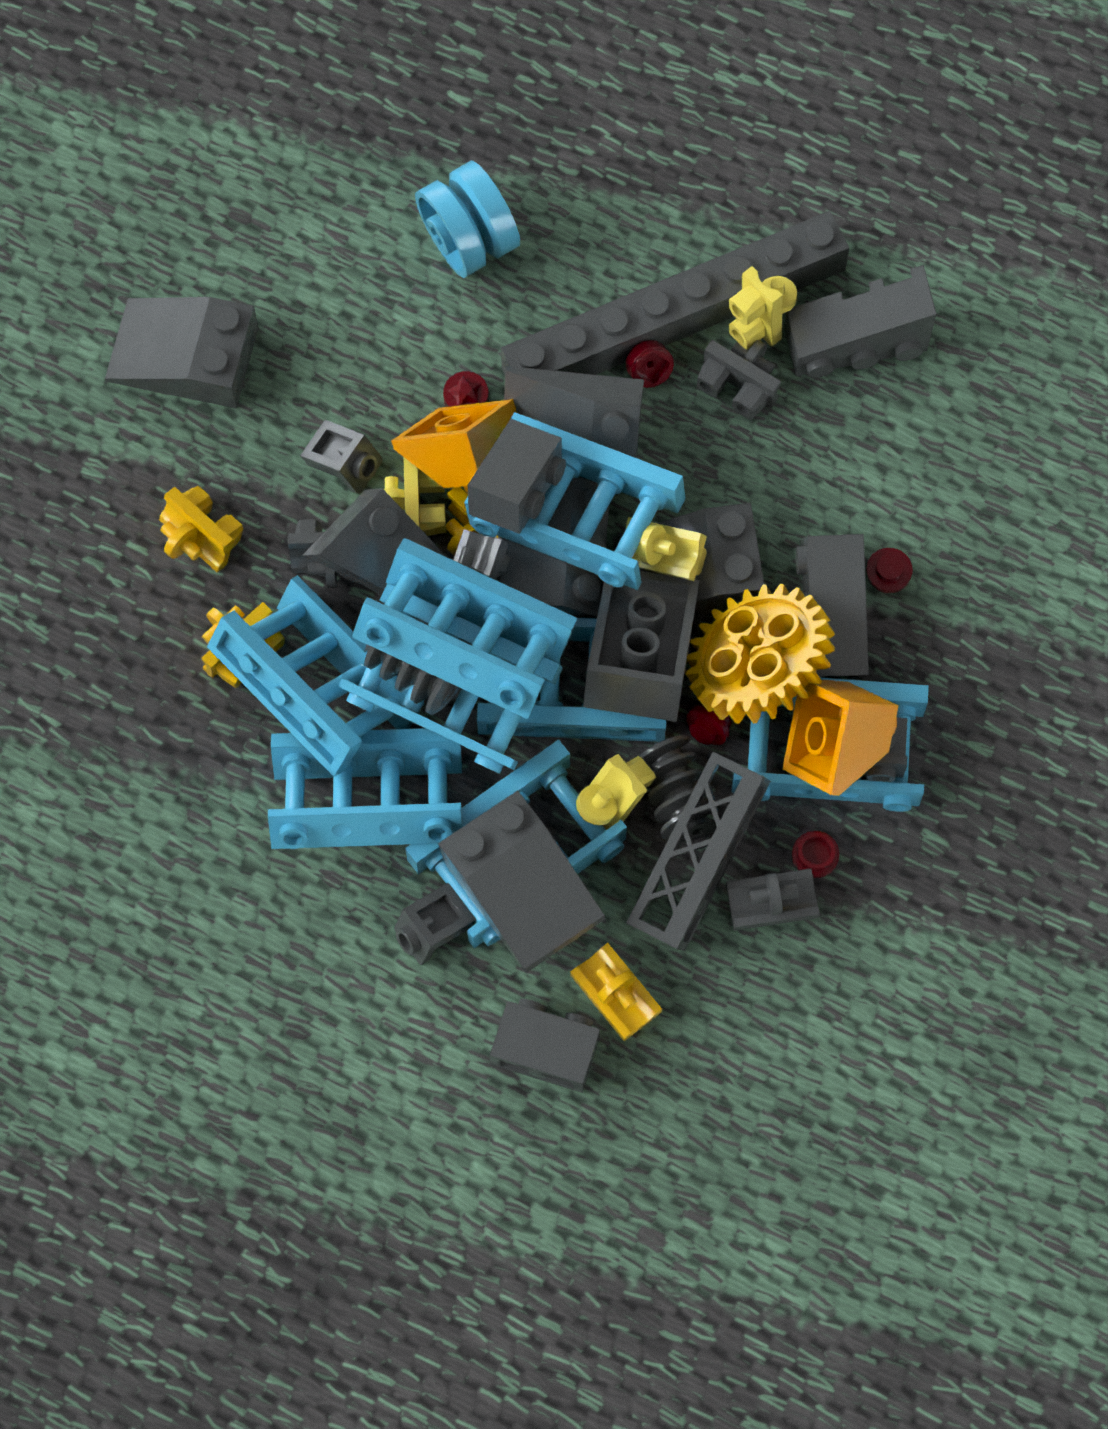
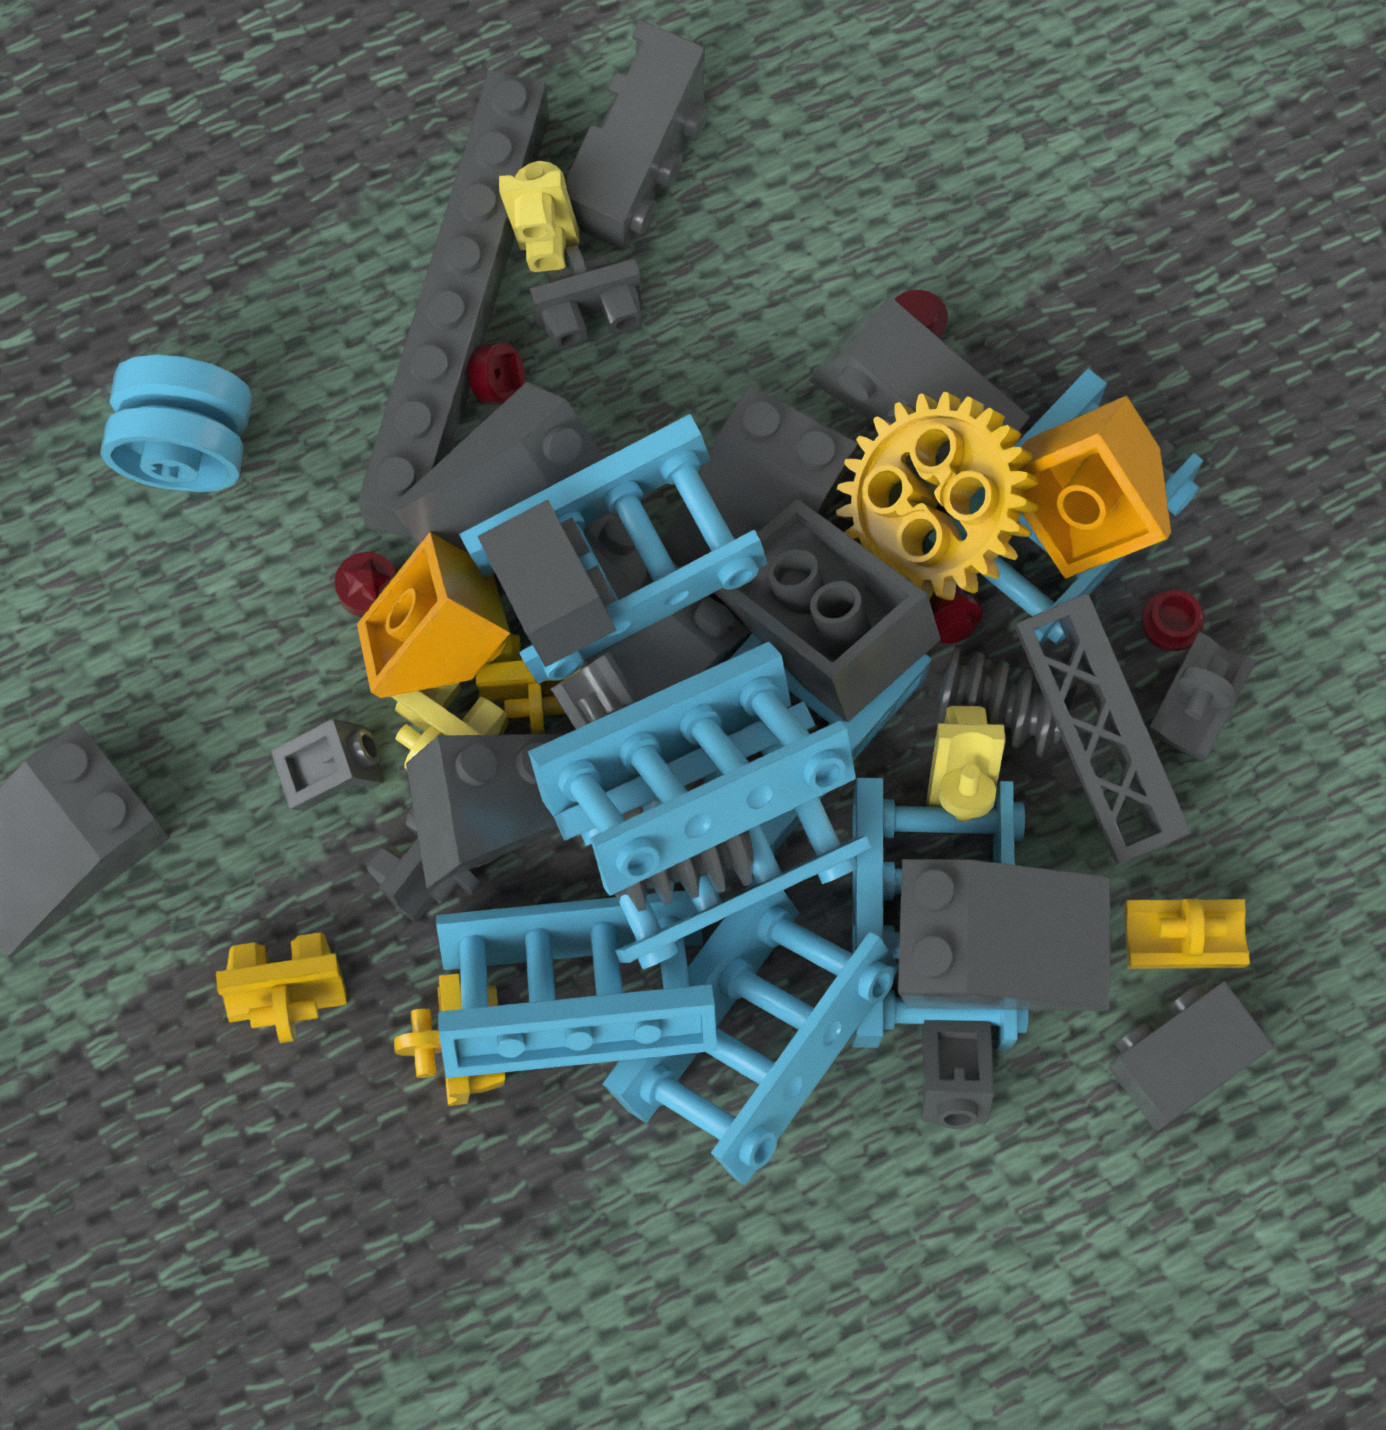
camera: 55 degrees left, 0 degrees up
(671, 551) = (745, 498): light yellow hips -> none

